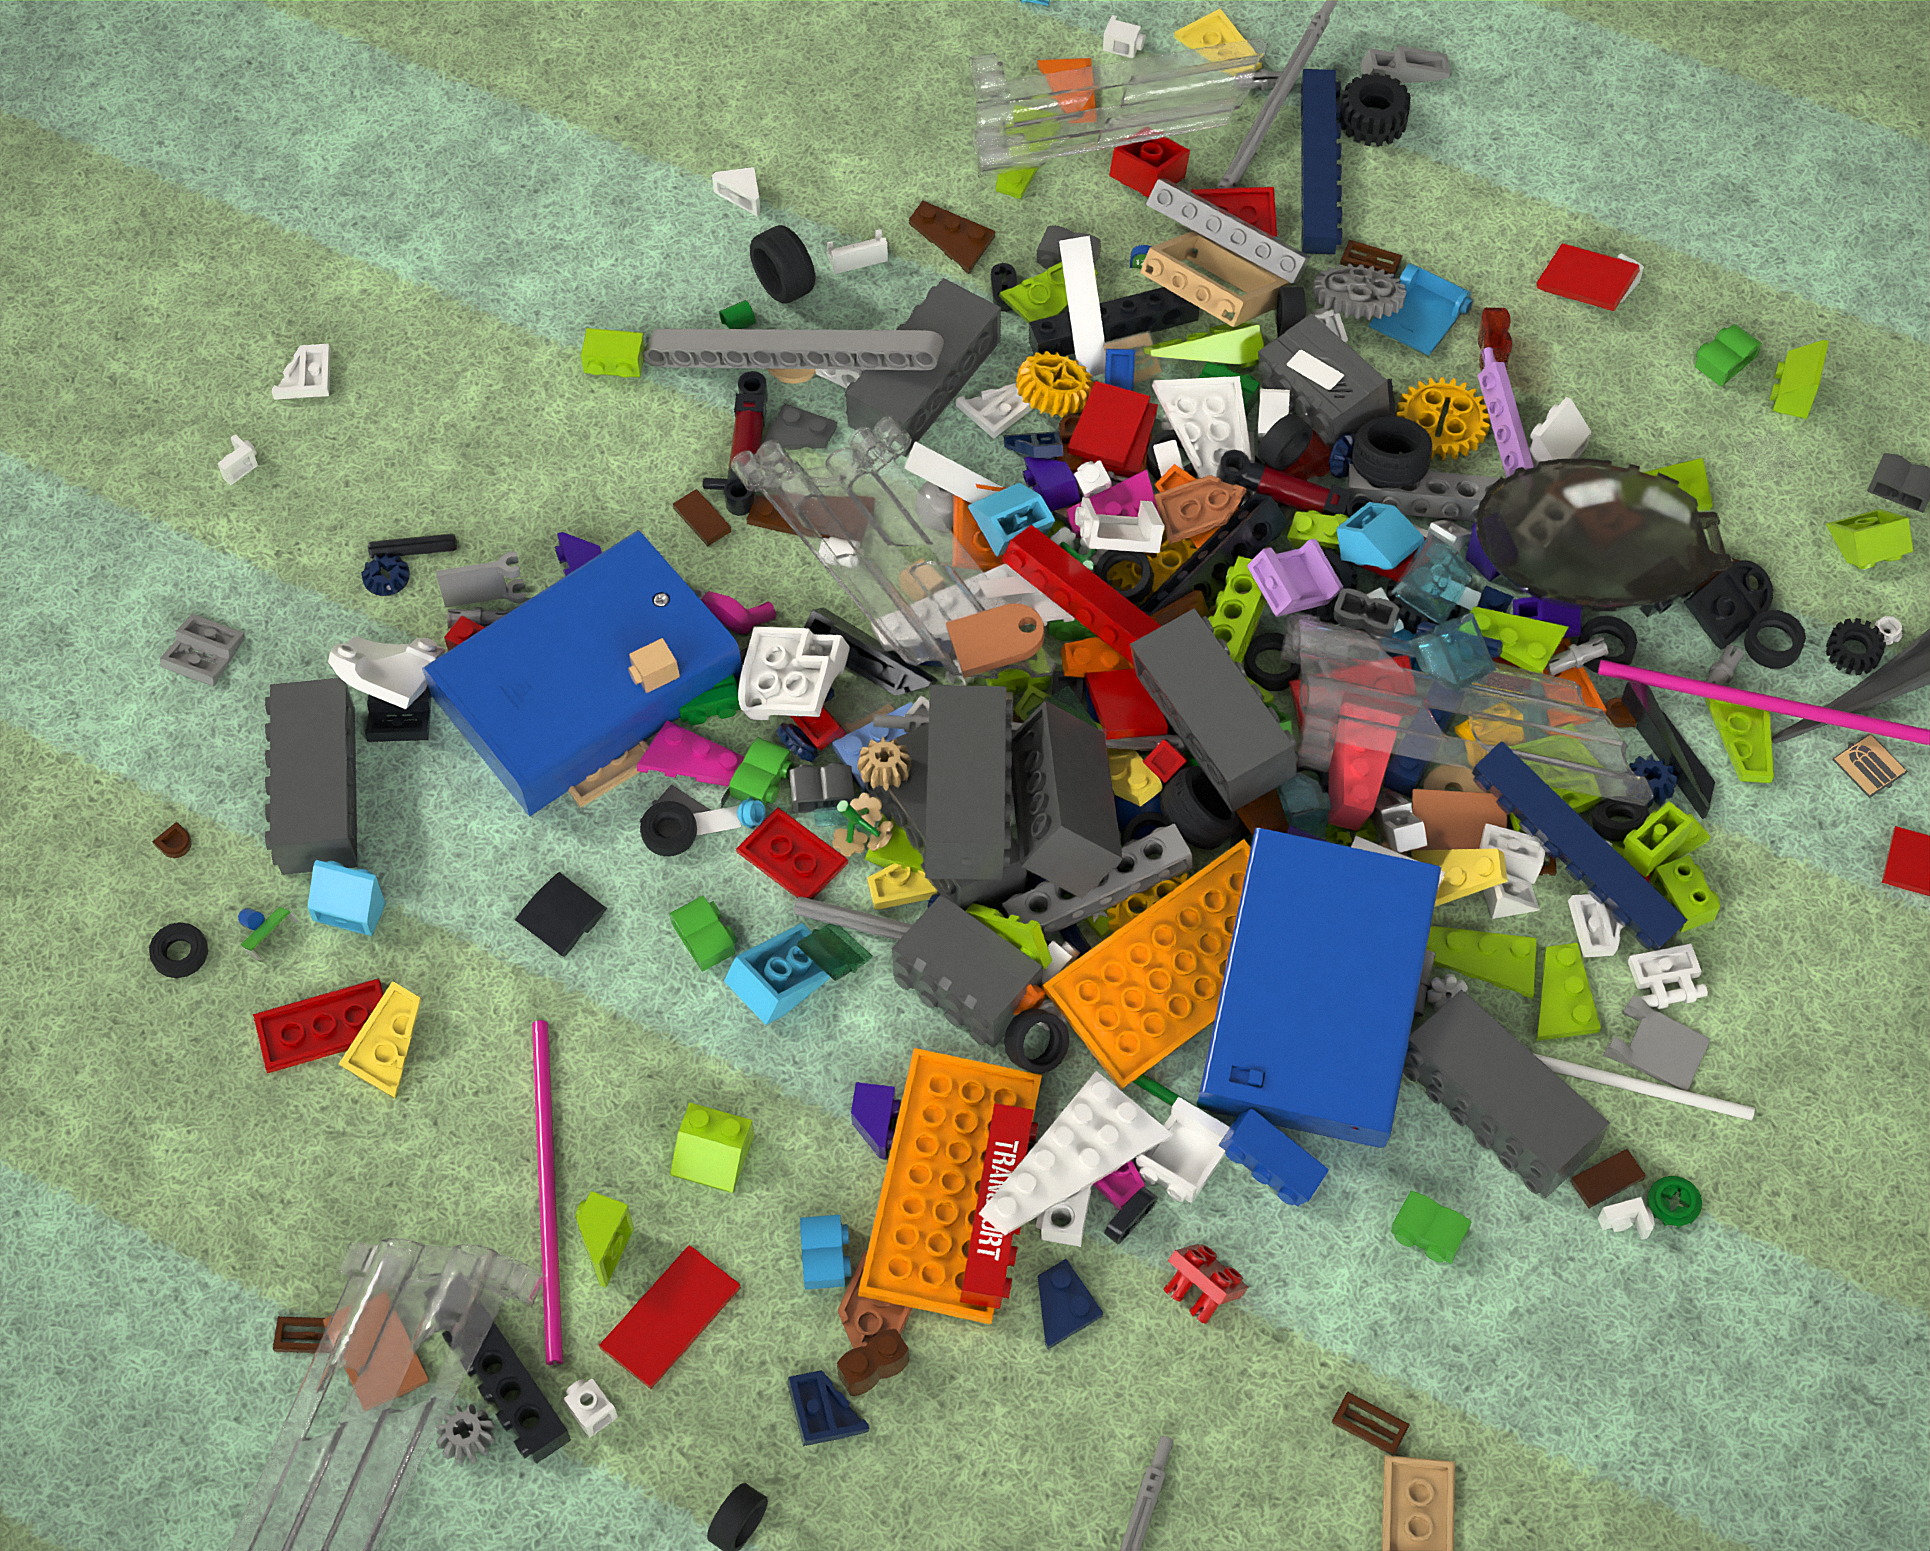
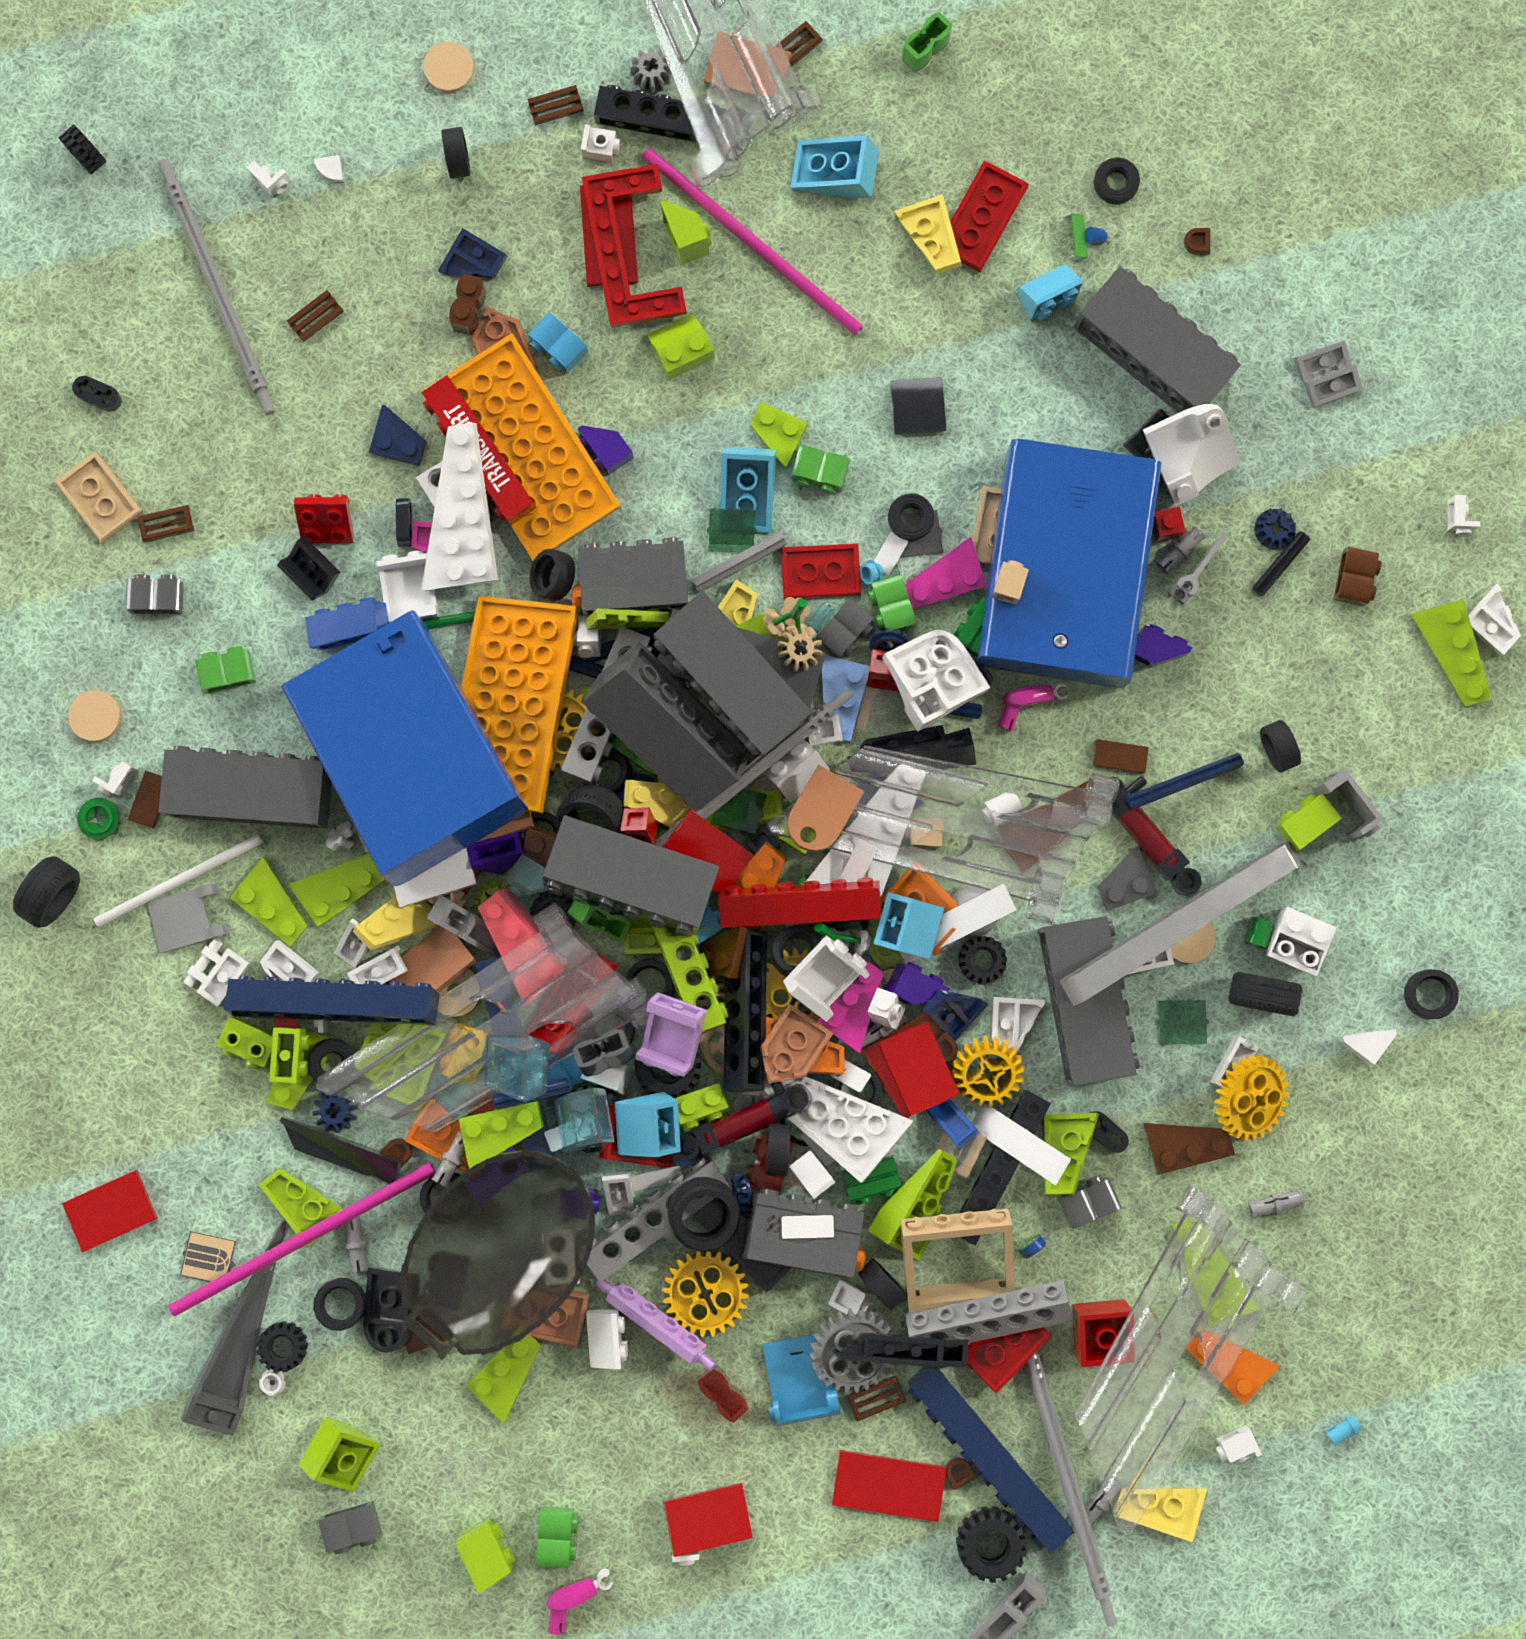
camera: 135 degrees right, 25 degrees up
(186, 1214) = (927, 41): none -> bright green brick
(355, 379) = (1455, 646): none -> lime wing
(368, 485) = (1357, 576): none -> reddish brown brick
(402, 1183) = (836, 167): none -> medium azure slope
(564, 1478) = (552, 105): none -> reddish brown tile
(570, 313) = (1357, 800): none -> light grey panel
(572, 414) = (1280, 746): none -> black tyre
(643, 1349) = (599, 195): none -> red plate
(662, 199) = (1448, 982): none -> black tyre
(671, 452) = (1184, 781): none -> dark blue axle
(703, 1001) = (778, 431): none -> lime wing
(713, 283) = (1300, 940): none -> white slope
(863, 310) = (1183, 1022): none -> clear green piece
(869, 214) = (1252, 1097): none -> yellow gear
(911, 144) = (1276, 1204): none -> light grey pin
(980, 452) = (994, 948): none -> black tyre
(1033, 1496) = (310, 307): none -> reddish brown tile
(1264, 1248) = (309, 569): none -> black bracket
(1320, 250) = (906, 1350): none -> black wedge
(1353, 172) = (959, 1472): none -> reddish brown tile
(1418, 202) = (889, 1485): none -> red tile
(1442, 1357) = (154, 595): none -> dark grey brick
(1600, 1299) = (95, 716): none -> tan tile
(1748, 306) = (572, 1596): none -> dark pink arm
(1782, 1157) = (46, 892): none -> black tyre

